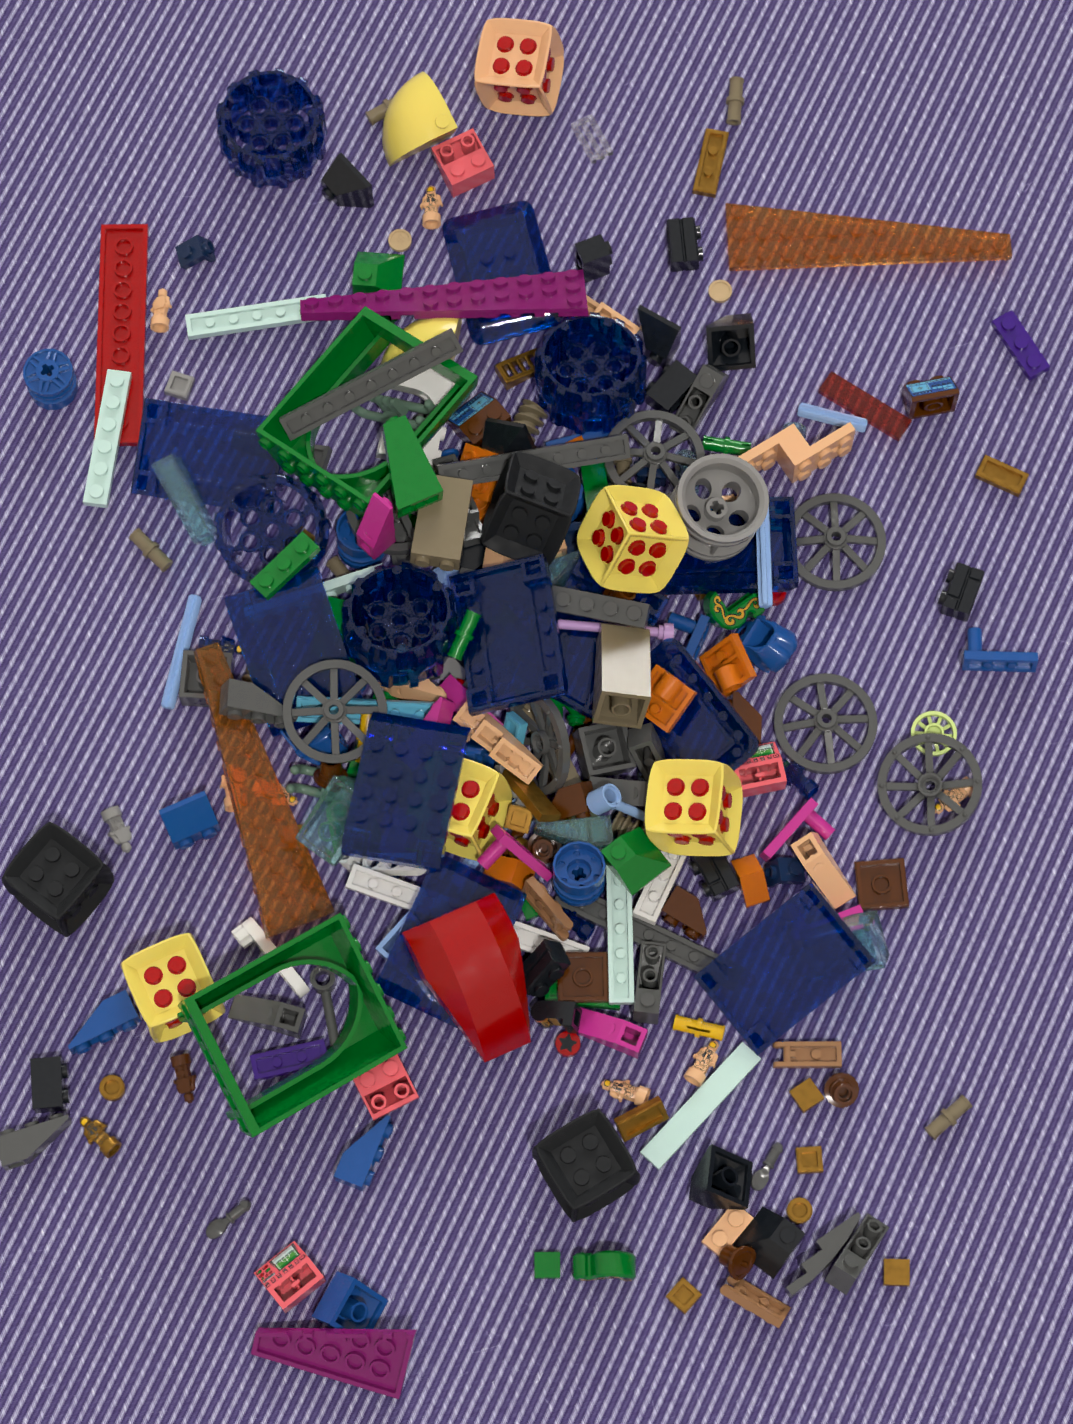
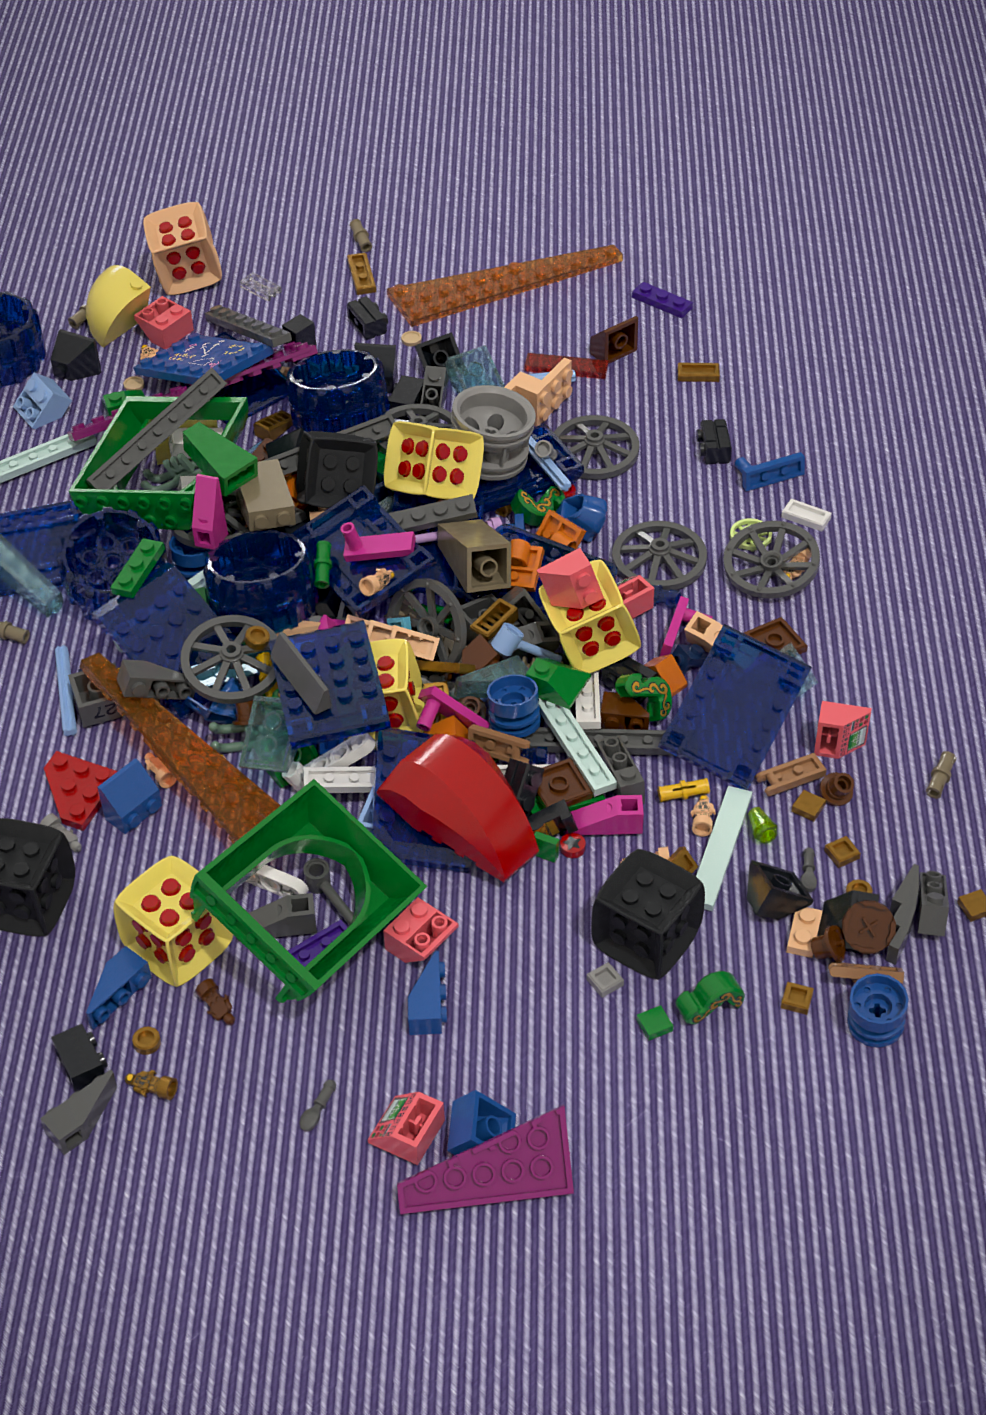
camera: 25 degrees left, 25 degrees down
(151, 778) = (75, 788): none -> red plate
(293, 235) = (41, 401): none -> light blue slope
(364, 702) = (257, 637): none -> pearl gold tile
(376, 786) = (300, 674): none -> dark grey slope
(472, 262) = (196, 355): none -> blue plate
(492, 693) = (373, 583): none -> light nougat piece
(523, 640) = (375, 546): none -> dark pink piece
(526, 1201) = (605, 979): none -> light grey tile
(539, 226) = (248, 326): none -> dark grey plate
(540, 1038) = (547, 846): none -> green tile
(611, 769) = (500, 606): none -> pearl gold slope
(679, 786) = (570, 581): none -> coral slope
(717, 904) = (654, 688): none -> green animal
(733, 1333) = (877, 1010): none -> blue wheel
(749, 1100) = (762, 826): none -> clear neon green cone
(756, 395) = (473, 369): none -> clear light blue slope
(768, 547) = (545, 449): none -> light grey piece
(778, 1260) = (868, 926): none -> reddish brown tile
(876, 1030) = (841, 729): none -> coral slope
(1004, 731) = (806, 515): none -> white tile

